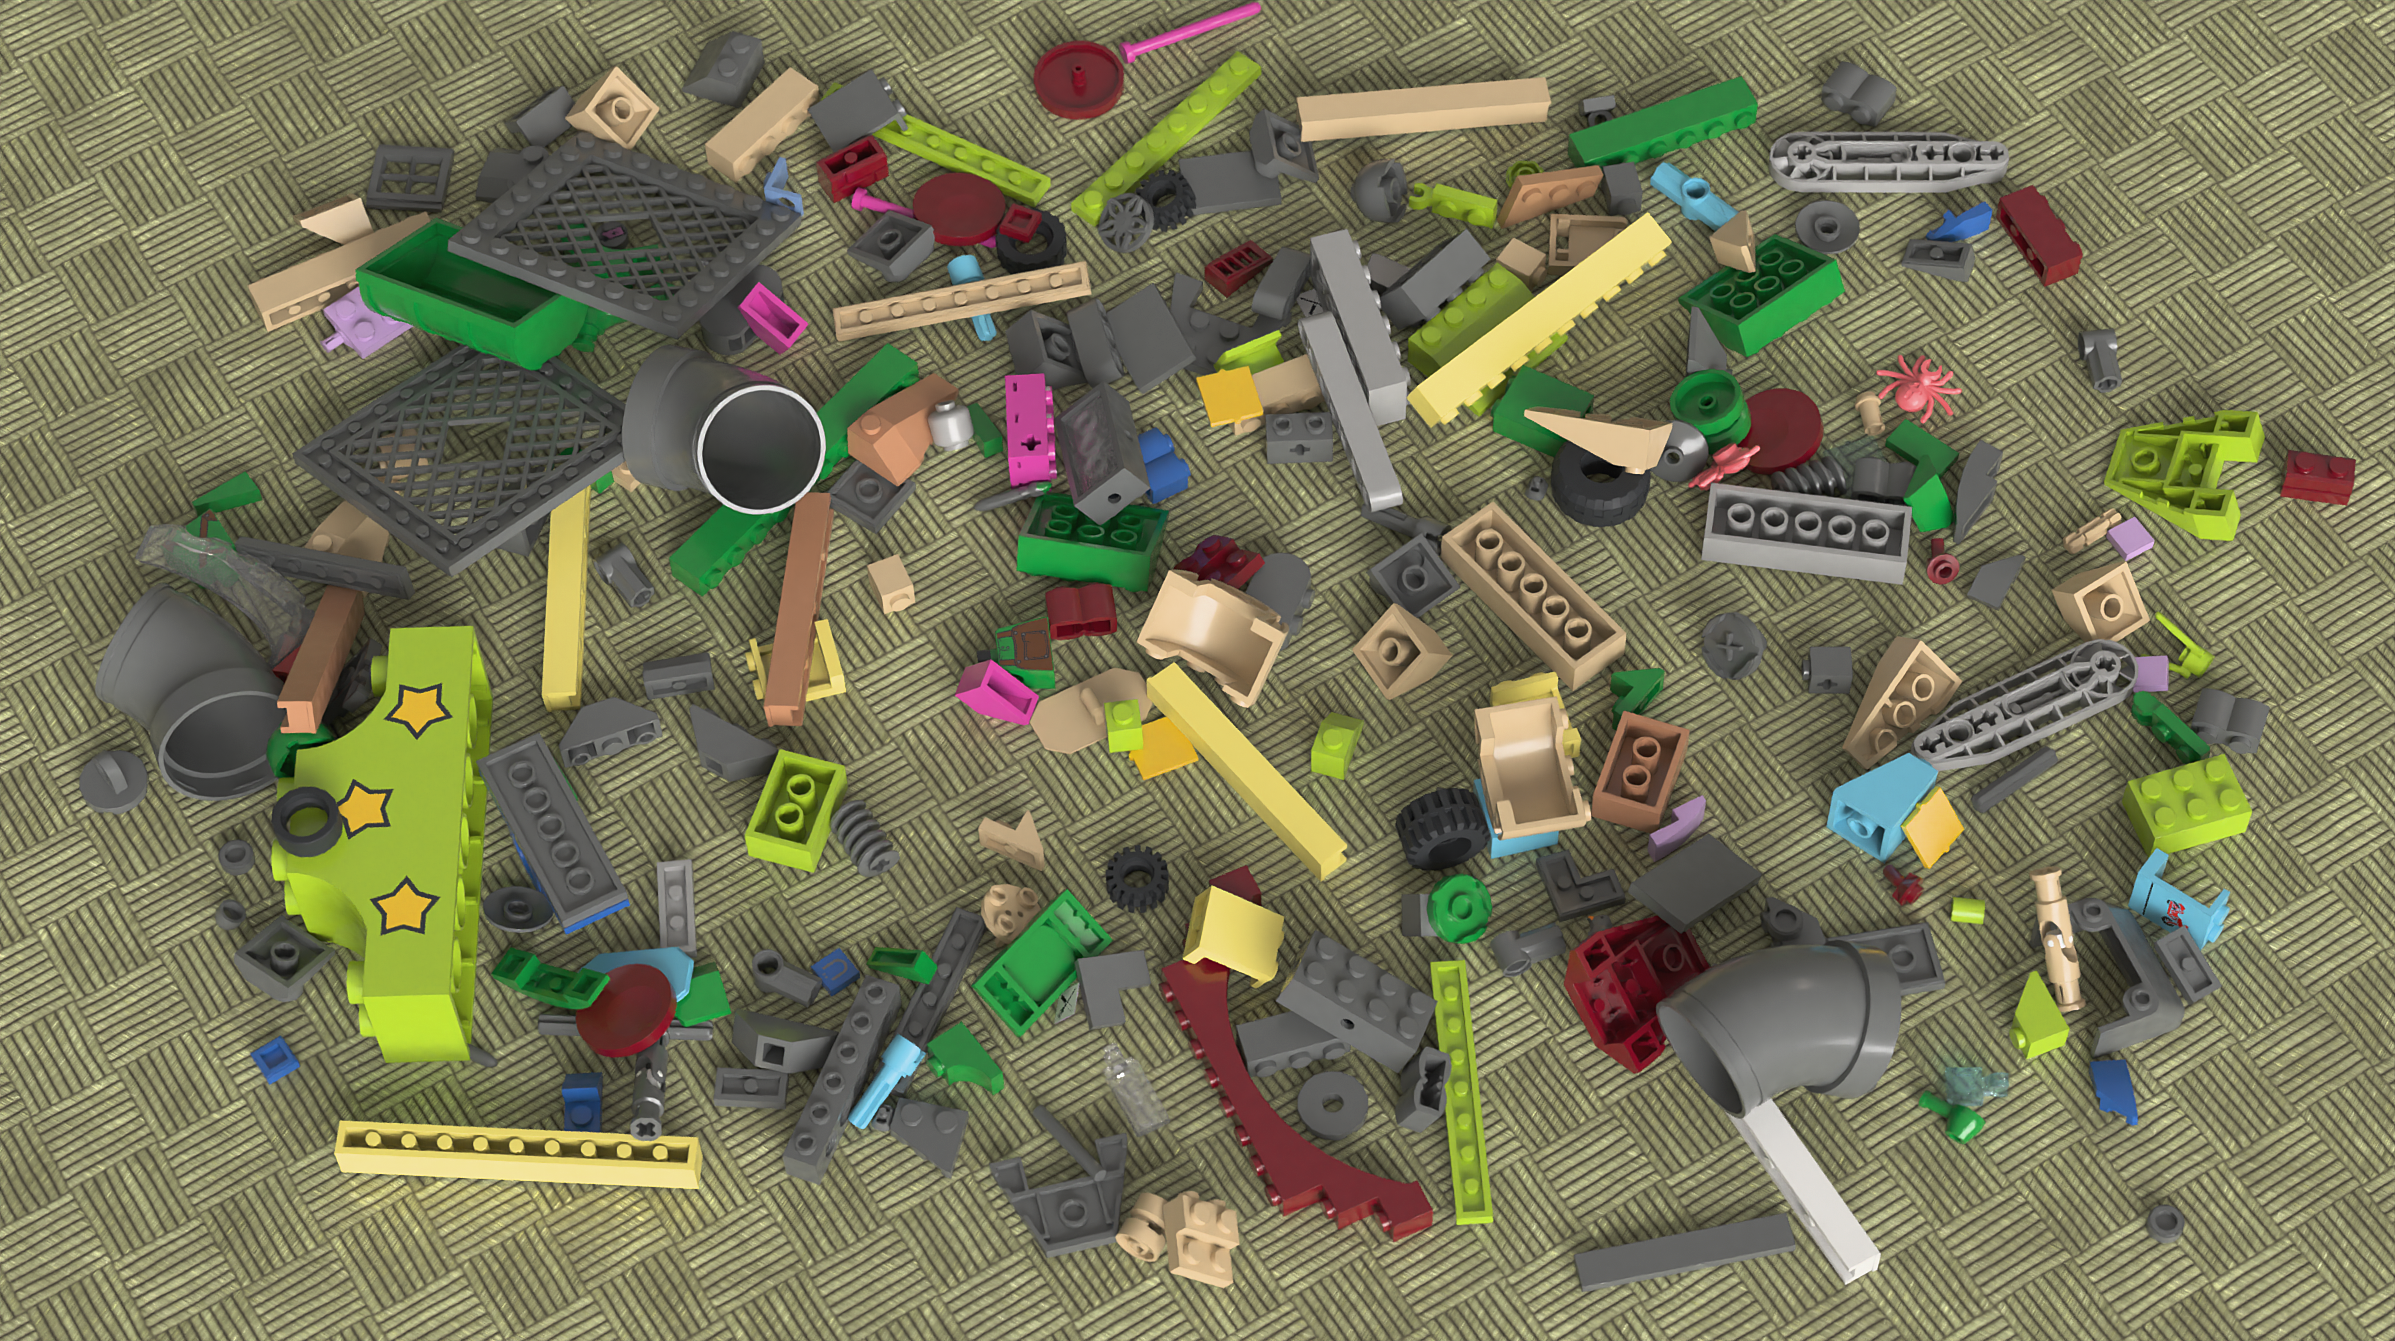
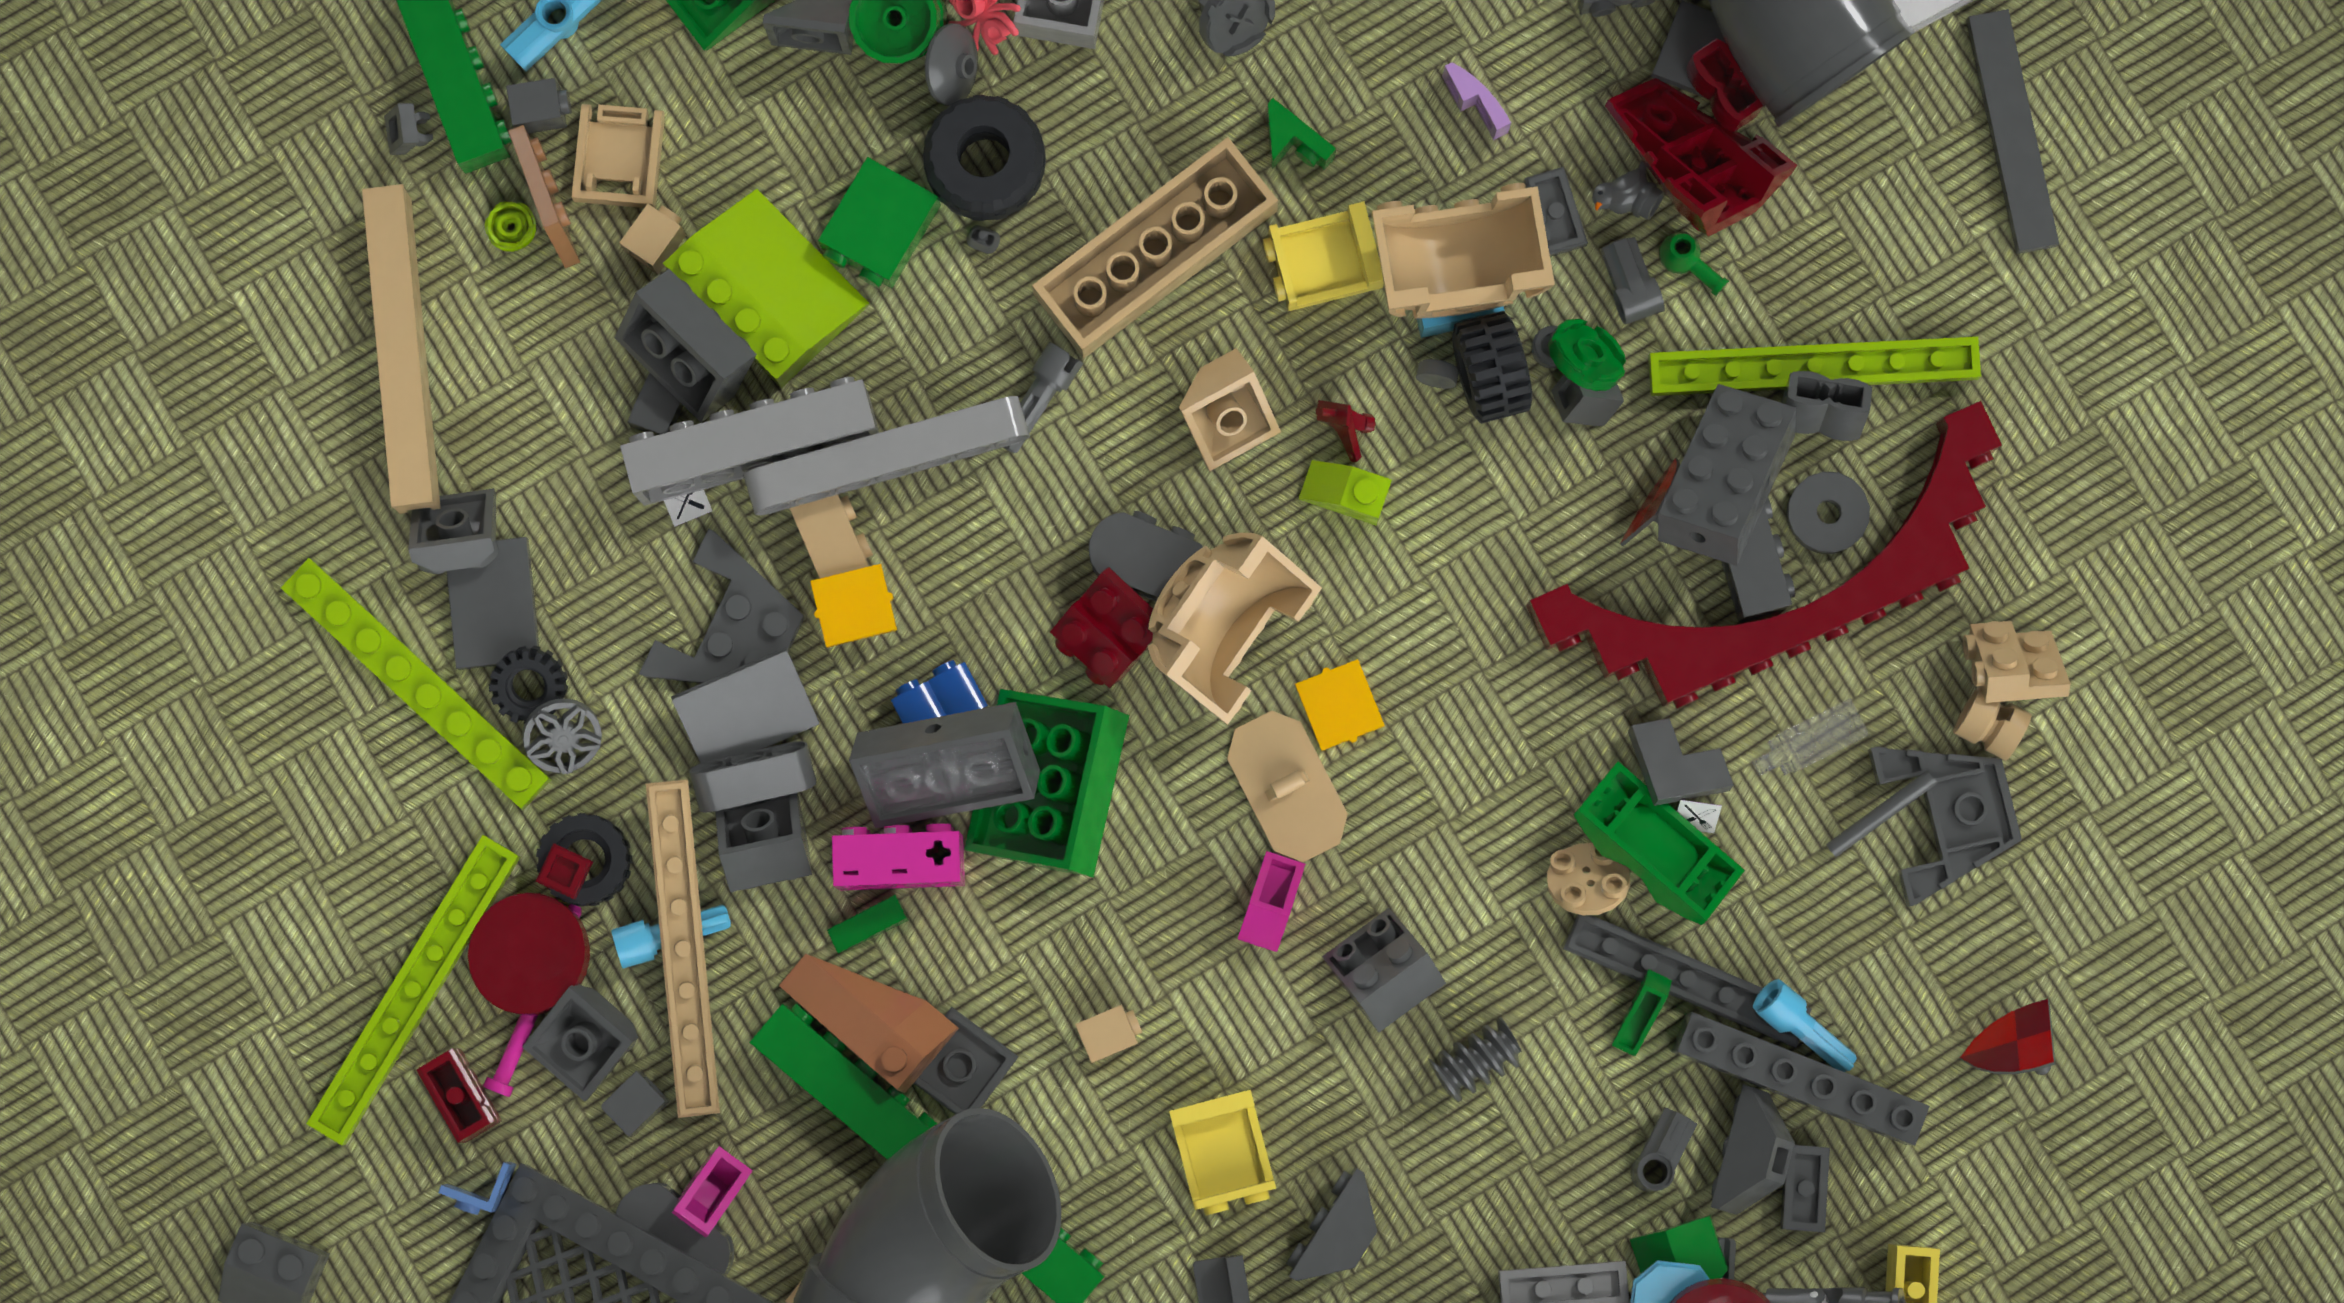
camera: 90 degrees left, 25 degrees up
(762, 125) = (371, 1217): tan brick -> none
(796, 810) = (1440, 1143): lime brick -> none
(799, 610) = (1171, 1149): nougat tile -> none
(836, 972) = (1647, 1092): blue tile -> none
(844, 280) = (635, 1103): none -> dark grey panel
(857, 111) = (373, 1089): dark grey panel -> none
(868, 1246) = (2015, 1042): none -> shield
(883, 1118) = (1840, 1029): dark grey rock -> none
(930, 1131) = (1858, 976): dark grey wing -> none
(938, 774) = (1384, 969): none -> dark grey slope
(950, 425) = (875, 960): light grey head -> none
(961, 1057) = (1768, 941): green arch -> none
(1017, 844) = (1483, 867): tan slope -> none
(1024, 653) = (1216, 870): torso -> none
(1033, 489) = (972, 854): dark grey piece -> none
(1079, 80) = (312, 798): dark red piece -> none
(1081, 611) = (1153, 797): dark red brick -> none
(1123, 725) = (1328, 744): lime brick -> none
(1129, 51) = (271, 729): dark pink bar -> none
(1137, 861) = (1536, 707): black tyre -> none
(1229, 284) = (652, 618): dark red slope -> none
(1234, 935) = (1629, 617): light yellow panel -> none
(1247, 771) = (1388, 599): light yellow tile -> none
(1256, 354) = (788, 578): lime panel -> none
(1282, 284) = (670, 536): dark grey beam -> none
(1299, 438) = (907, 523): dark grey brick -> none
(1380, 191) = (530, 410): dark grey cylinder -> none
(1394, 739) = (1345, 423): none -> dark red piece
(1413, 577) = (1121, 392): dark grey slope -> none
(1455, 204) = (549, 319): lime plate -> none
(1539, 320) = (754, 214): light yellow brick -> none
(1550, 996) = (1690, 261): none -> green bar
(1627, 442) = (955, 131): tan wedge -> none
(1640, 772) = (1407, 136): nougat brick -> none
(1694, 883) = (1566, 82): dark grey tile -> none

